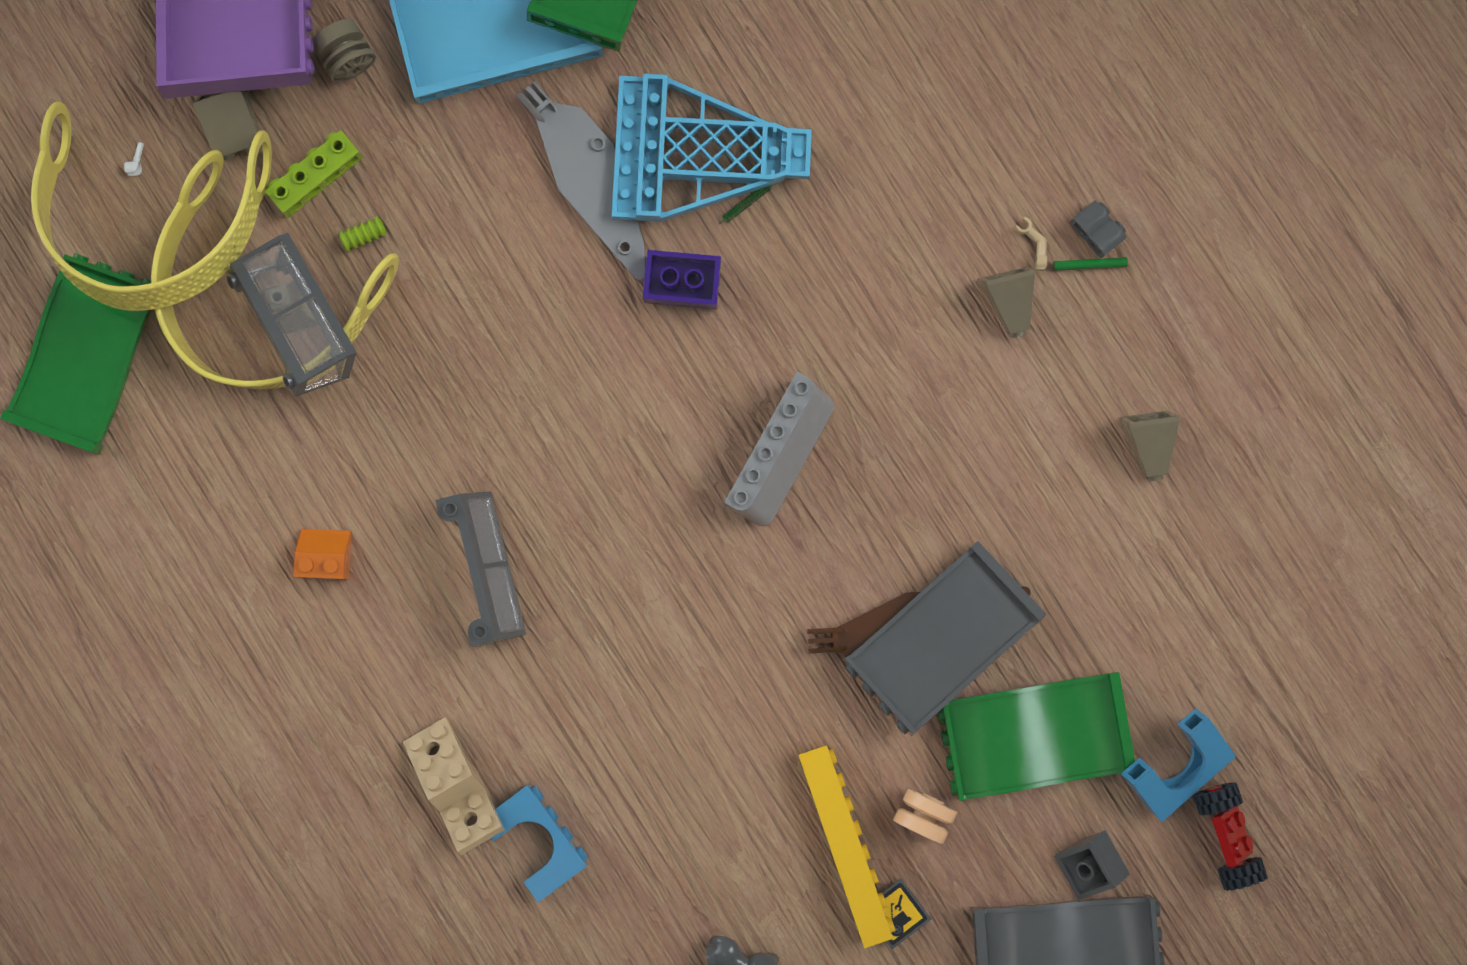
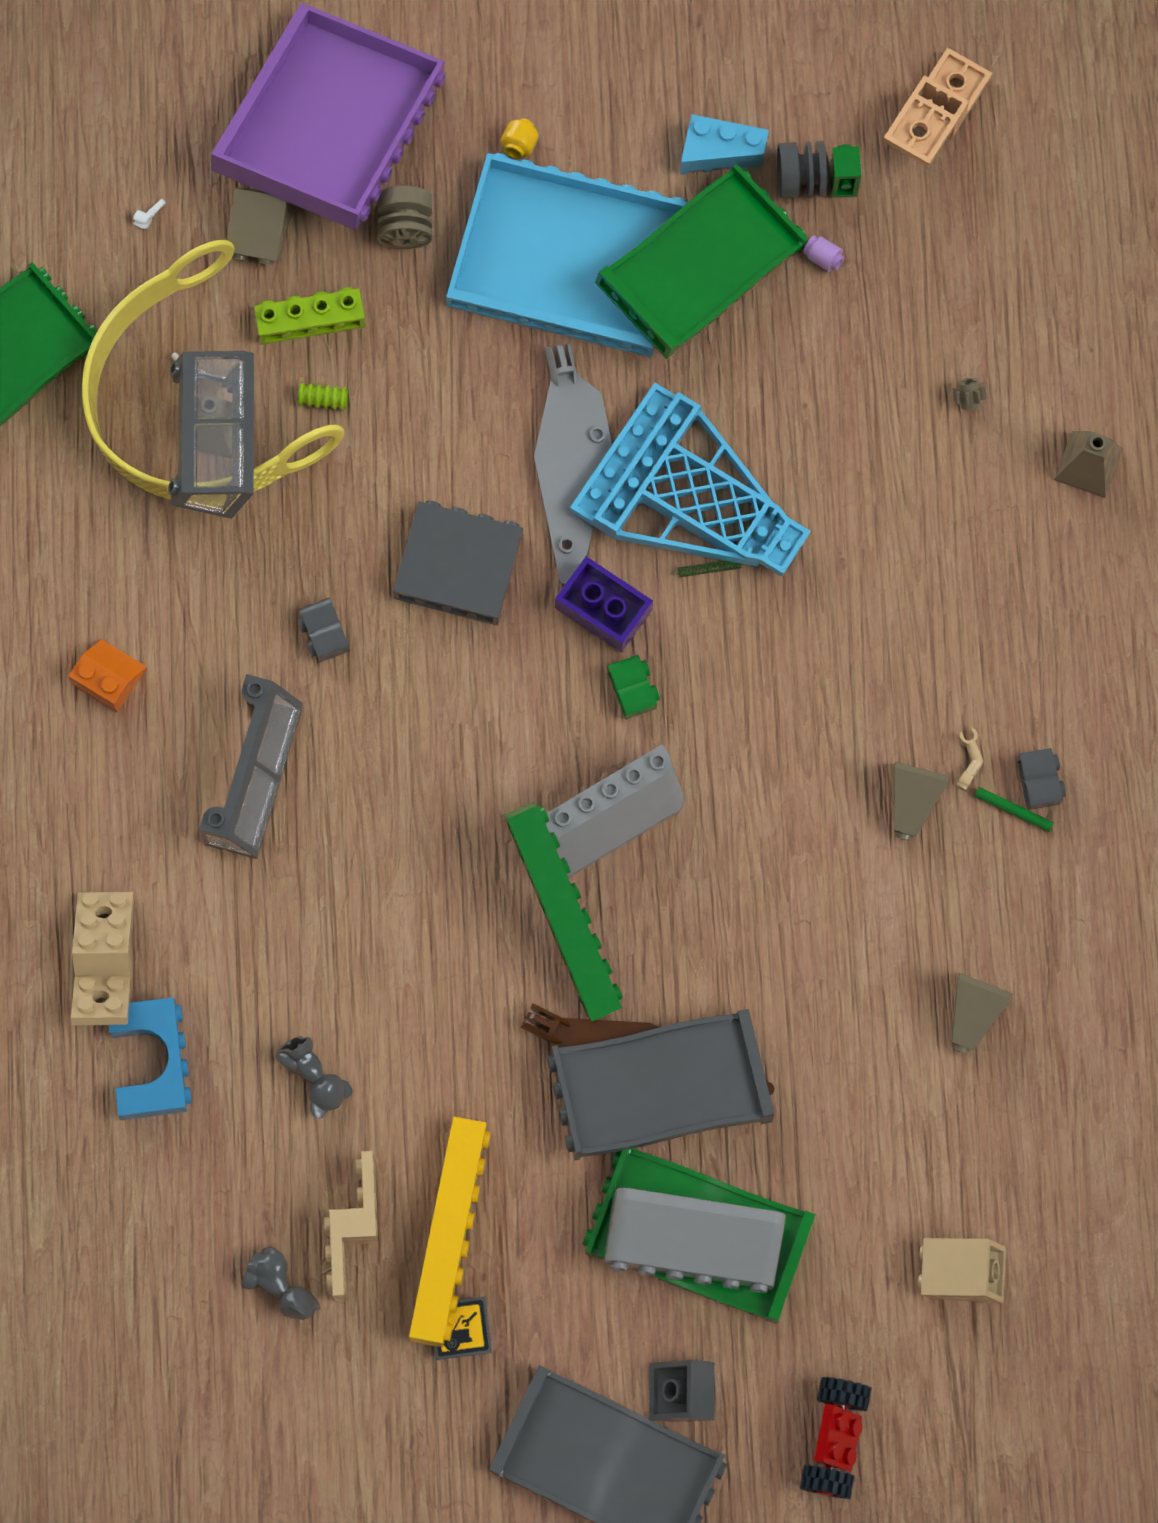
camera: 25 degrees right, 10 degrees down
(167, 291) = (115, 344): light yellow piece -> none
(473, 423) = (323, 629): none -> dark grey brick
(547, 309) = (458, 562): none -> dark grey panel
(687, 788) = (326, 1090): none -> dark grey animal
(741, 332) = (633, 687): none -> green brick
(770, 886) = (351, 1226): none -> tan bracket
(792, 547) = (563, 911): none -> green brick
(926, 814) = (541, 1246): light nougat wheel -> none
(1040, 749) = (694, 1239): none -> light grey windscreen
(1208, 757) = (859, 1349): dark azure arch -> none
(1252, 651) = (962, 1269): none -> tan slope

